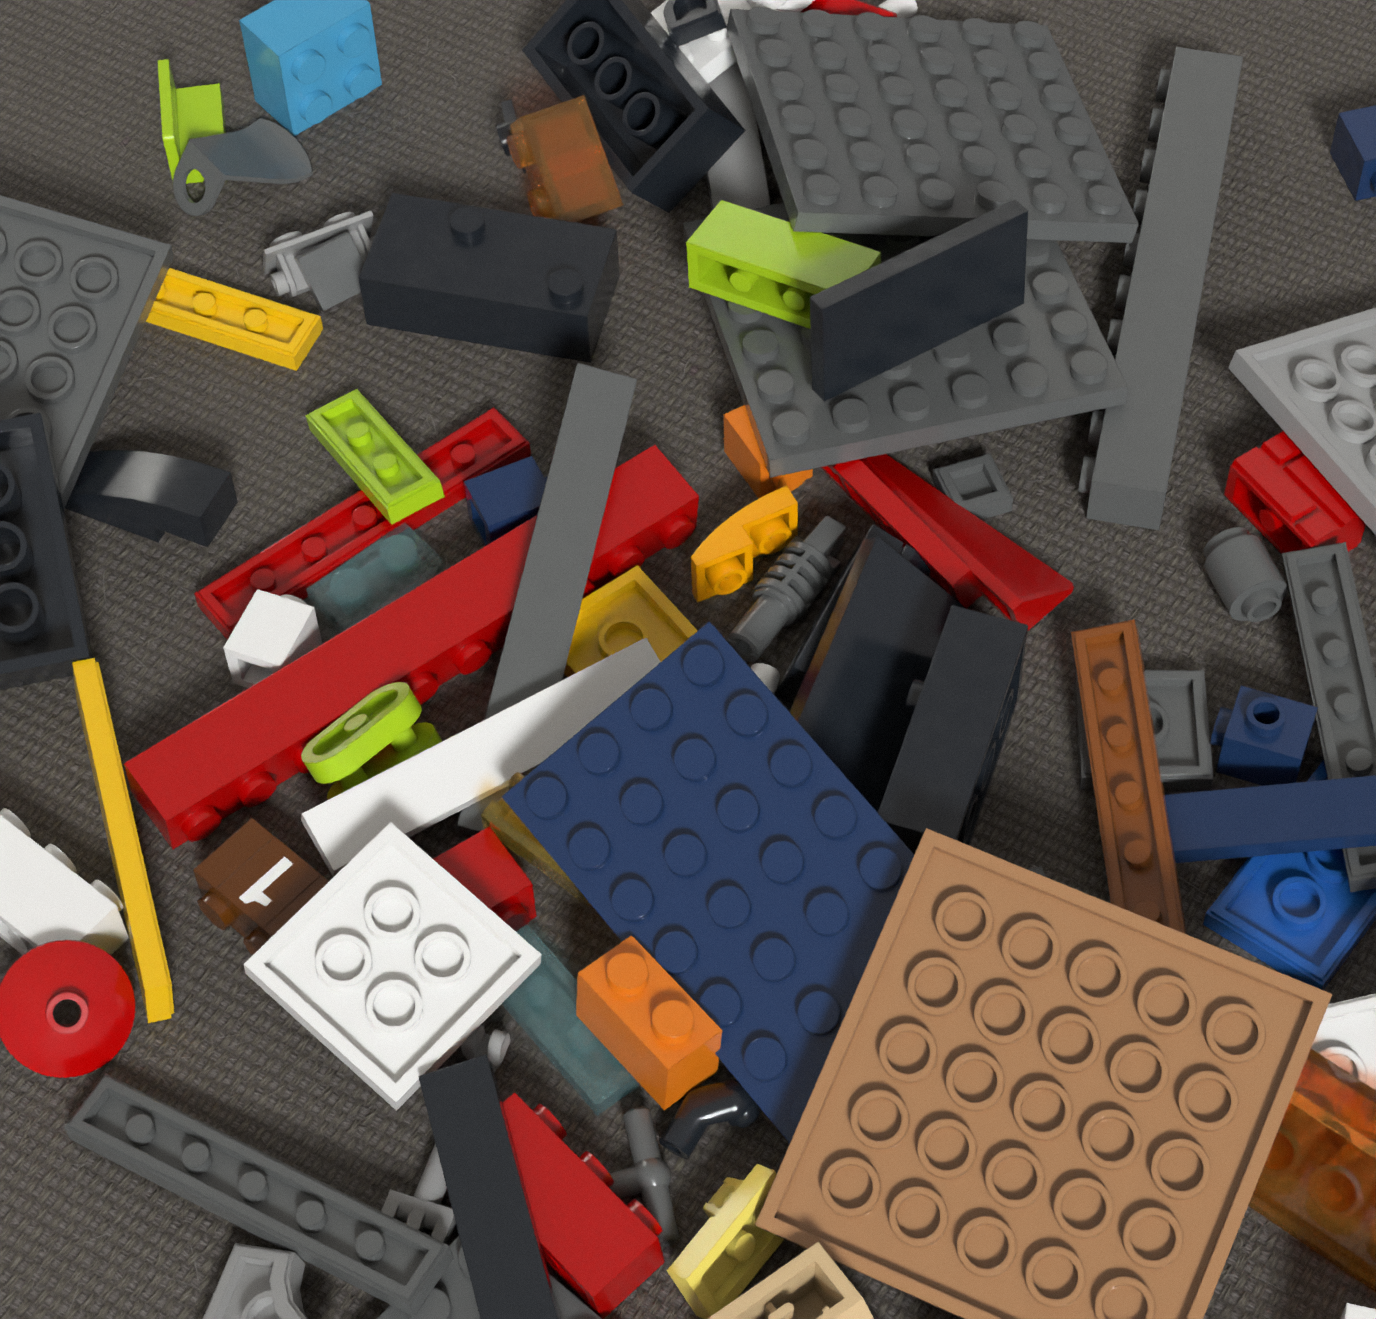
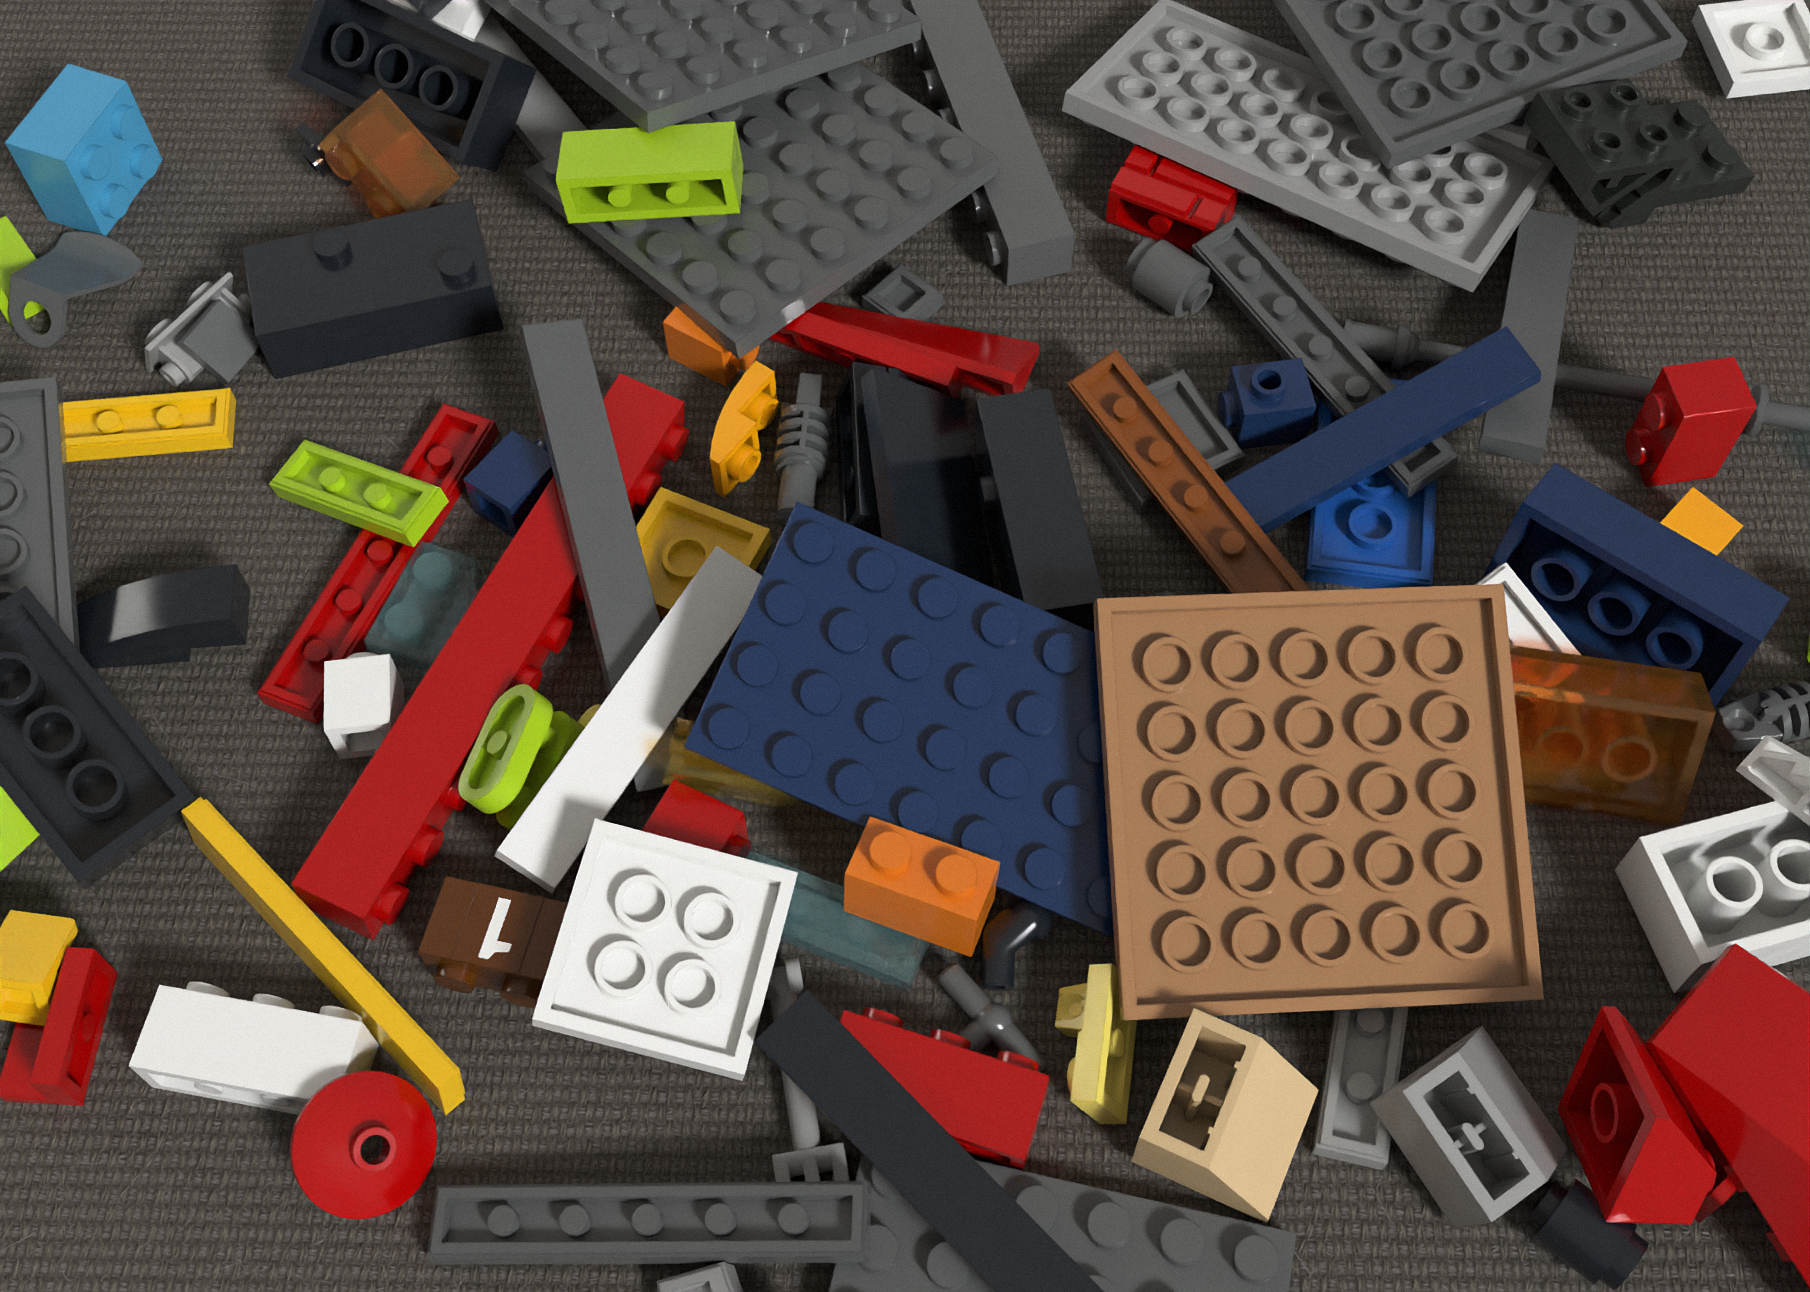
camera: 30 degrees left, 5 degrees up
(918, 300) = (794, 148): black tile -> none

